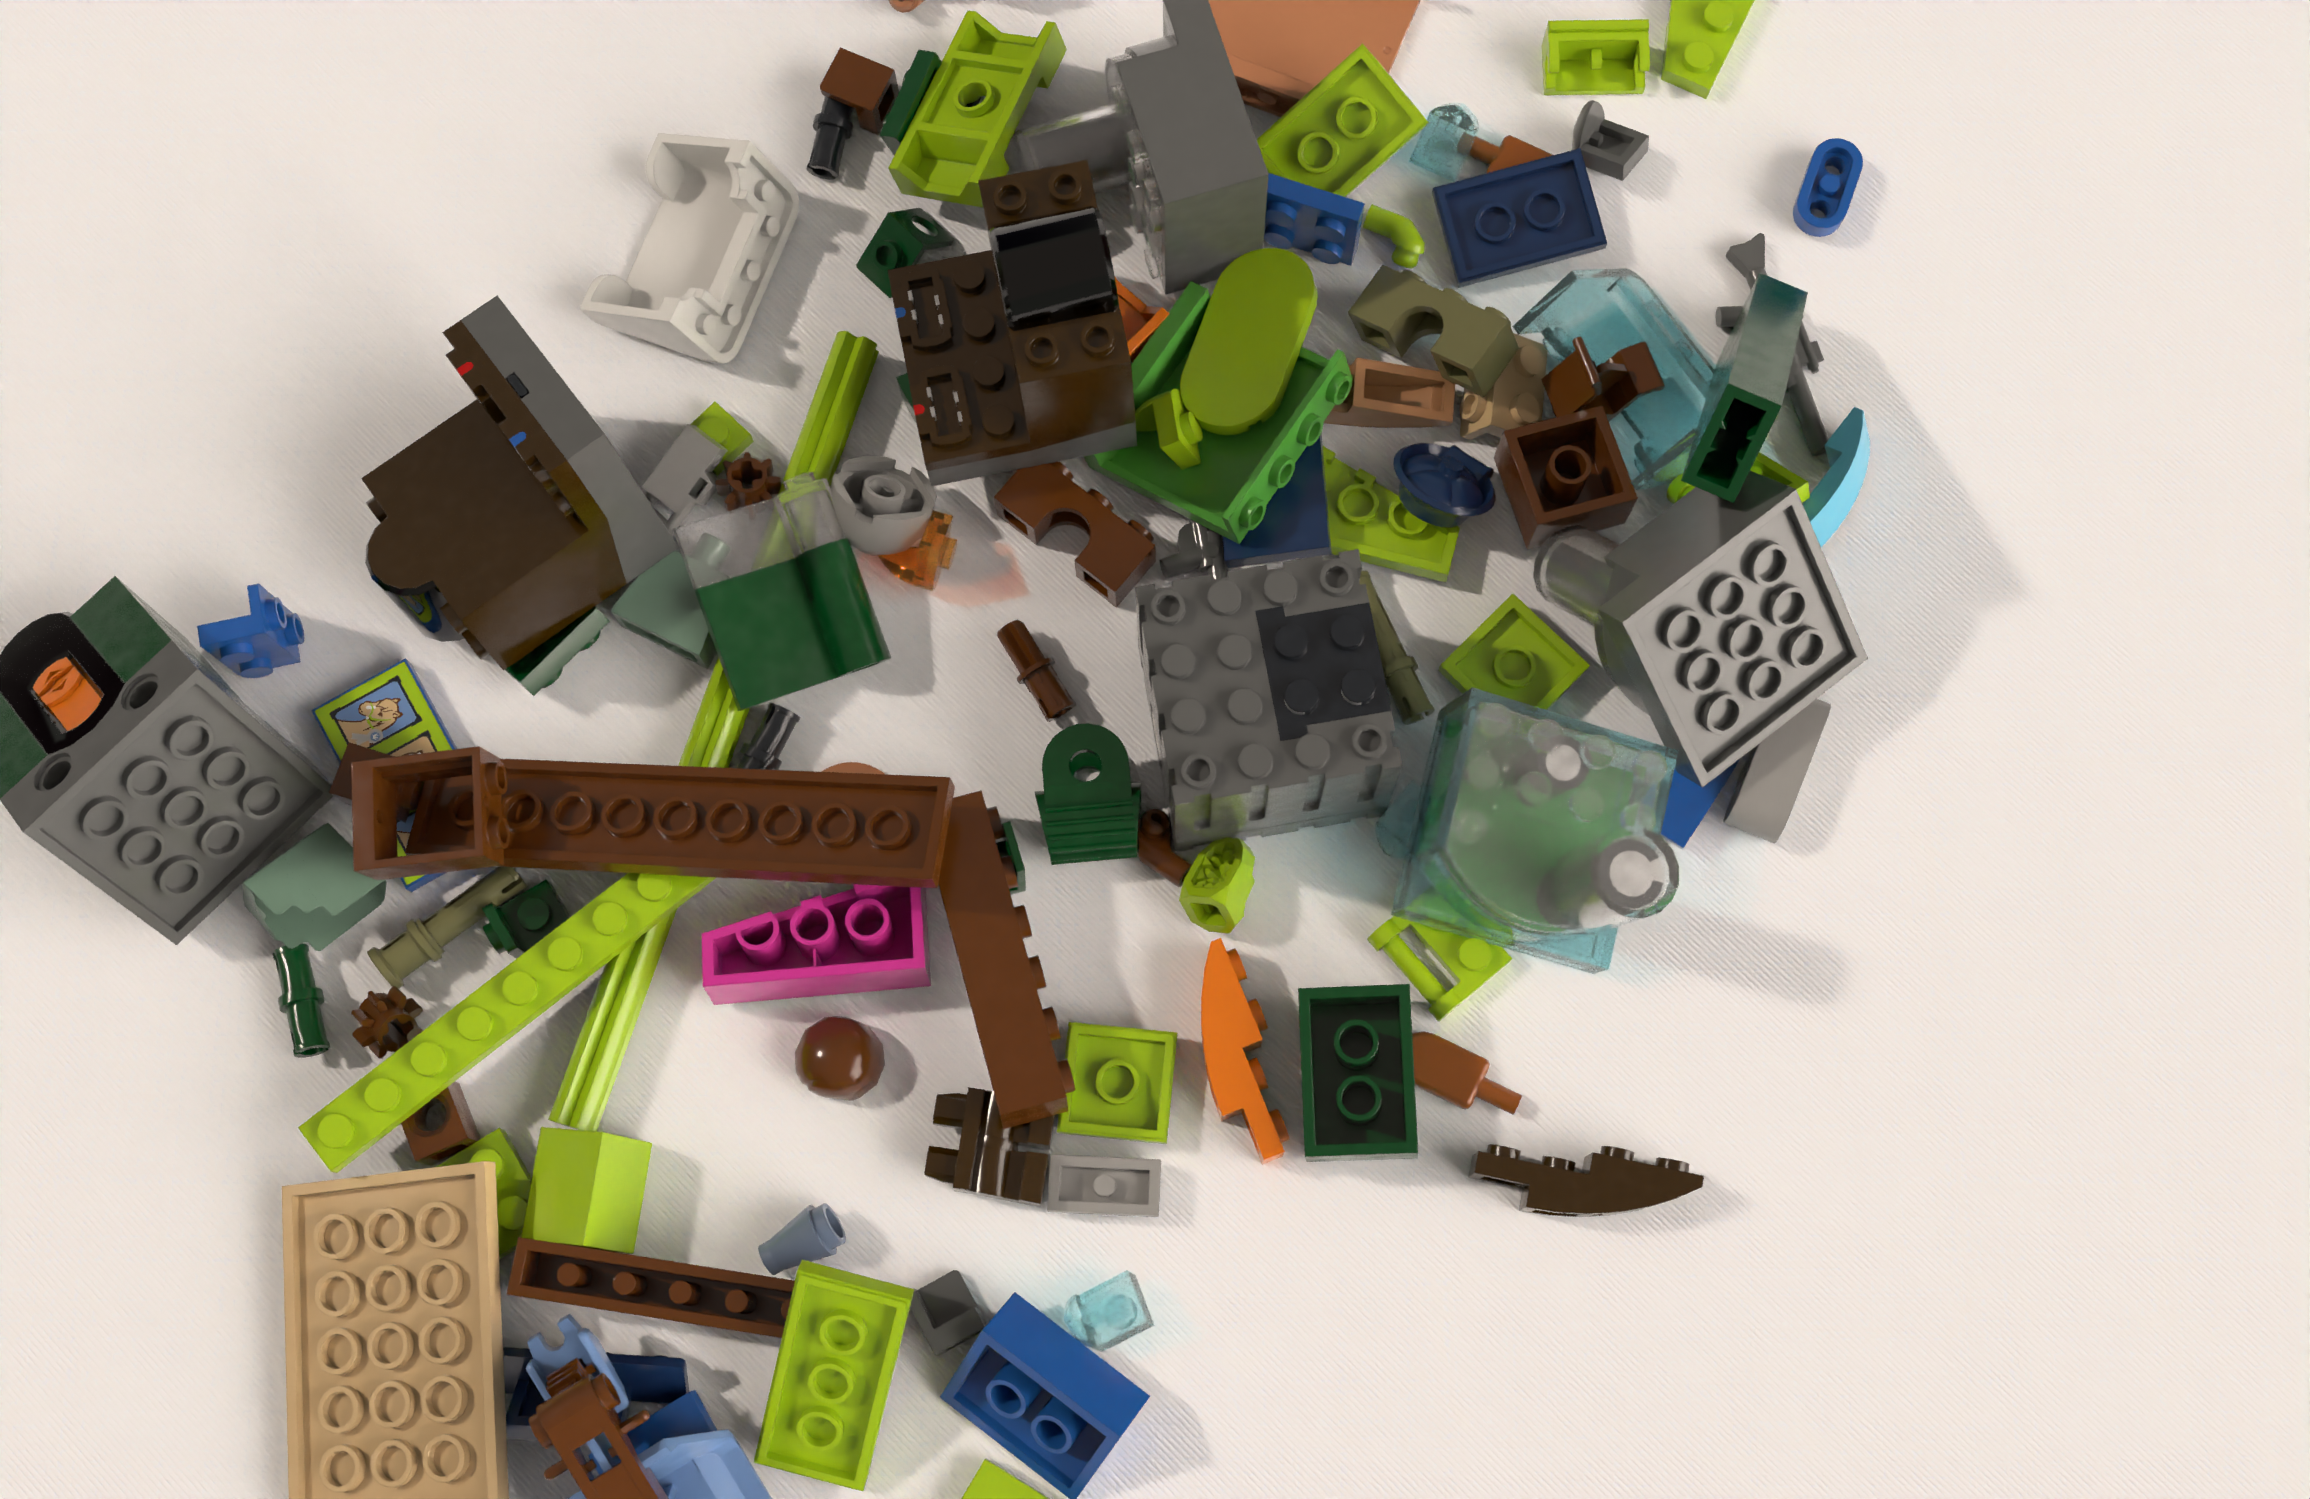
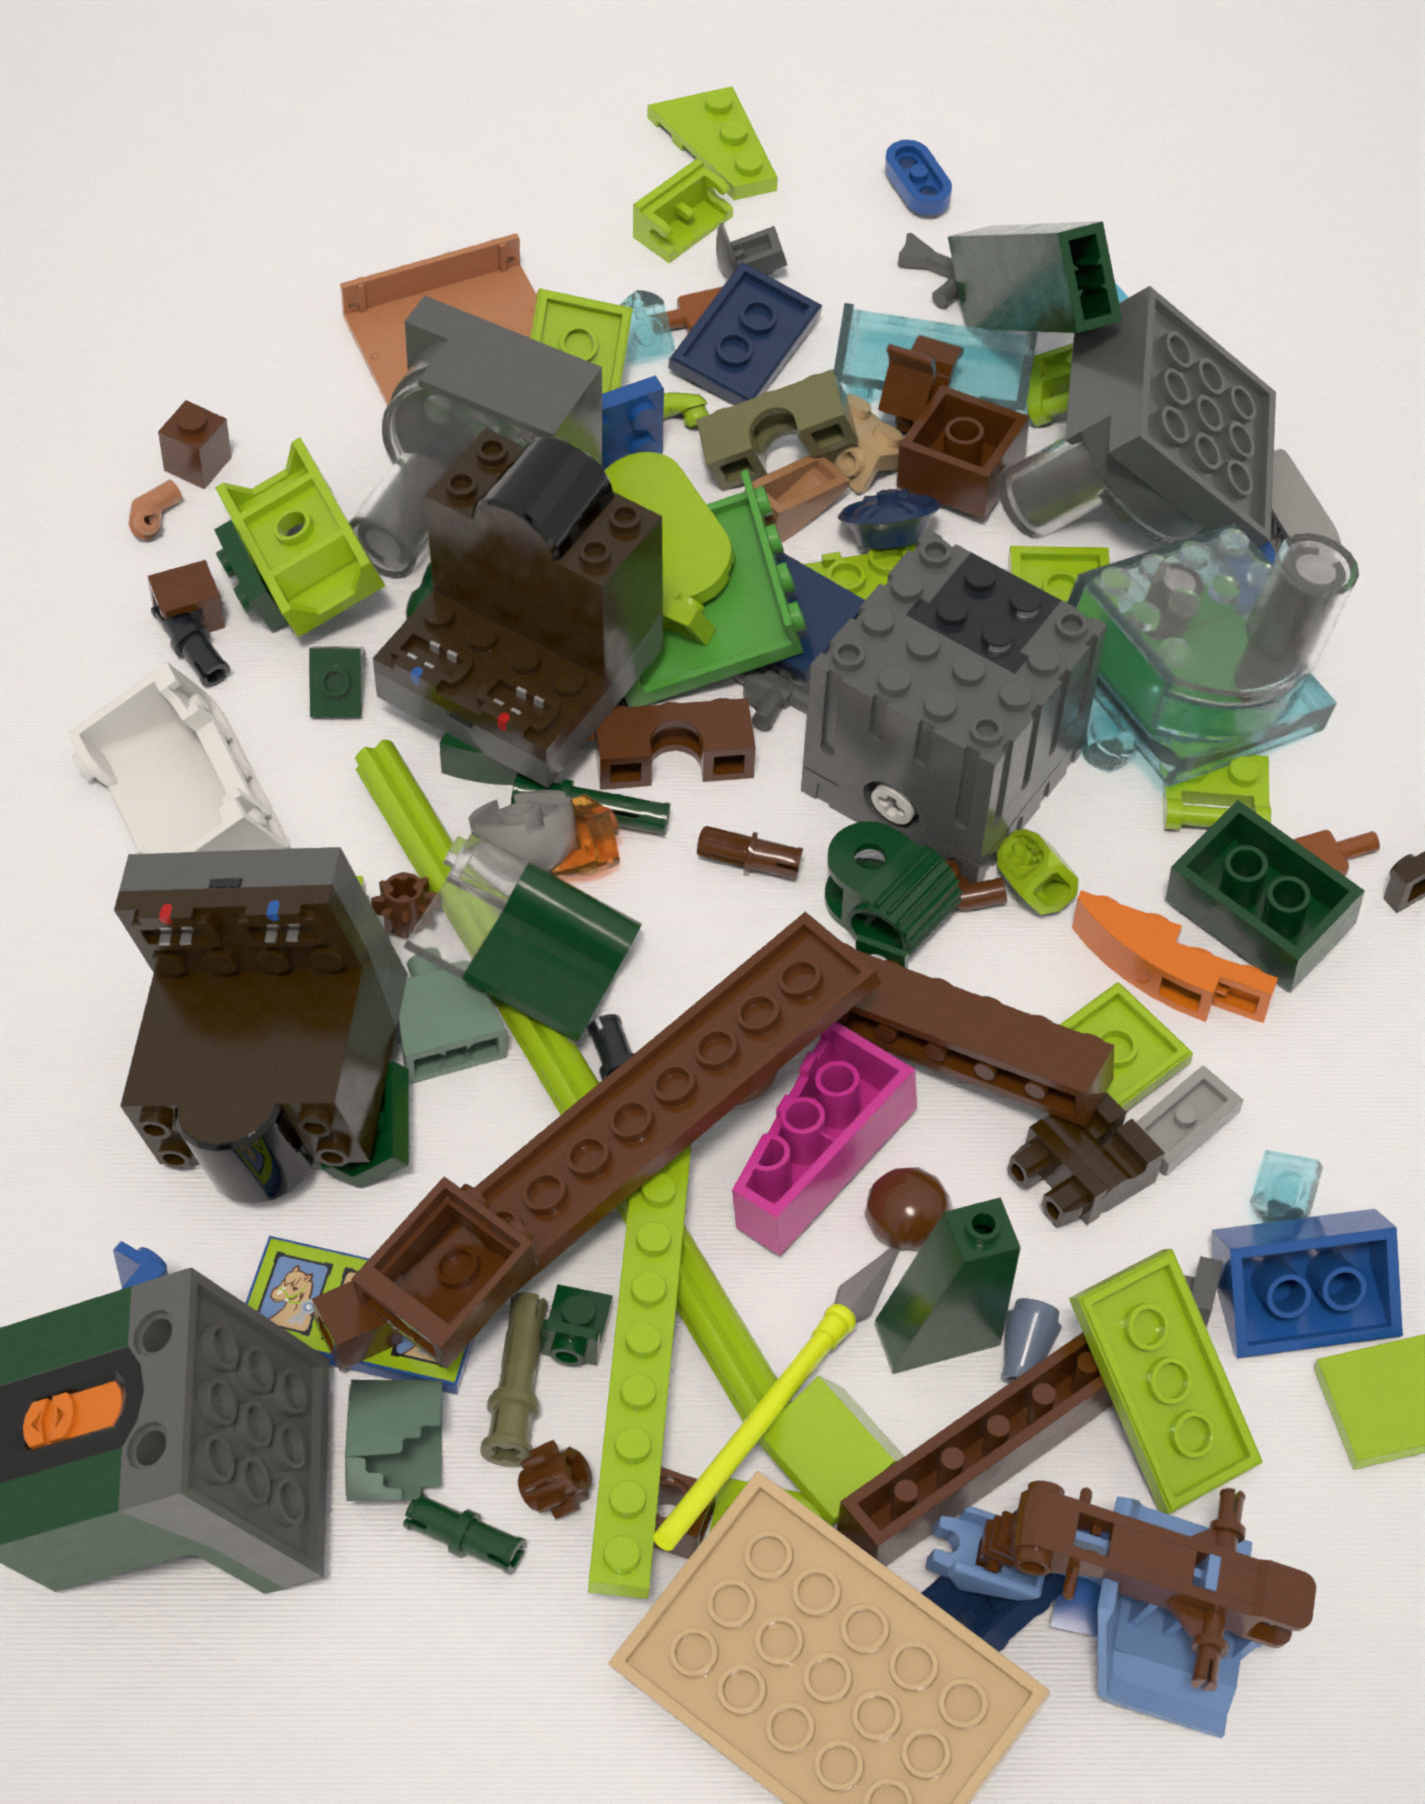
camera: 50 degrees left, 20 degrees down
(718, 1091) = (852, 1303): none -> neon yellow piece
(780, 1184) = (953, 1291): none -> dark green slope
(974, 535) = (629, 811): none -> dark green pin

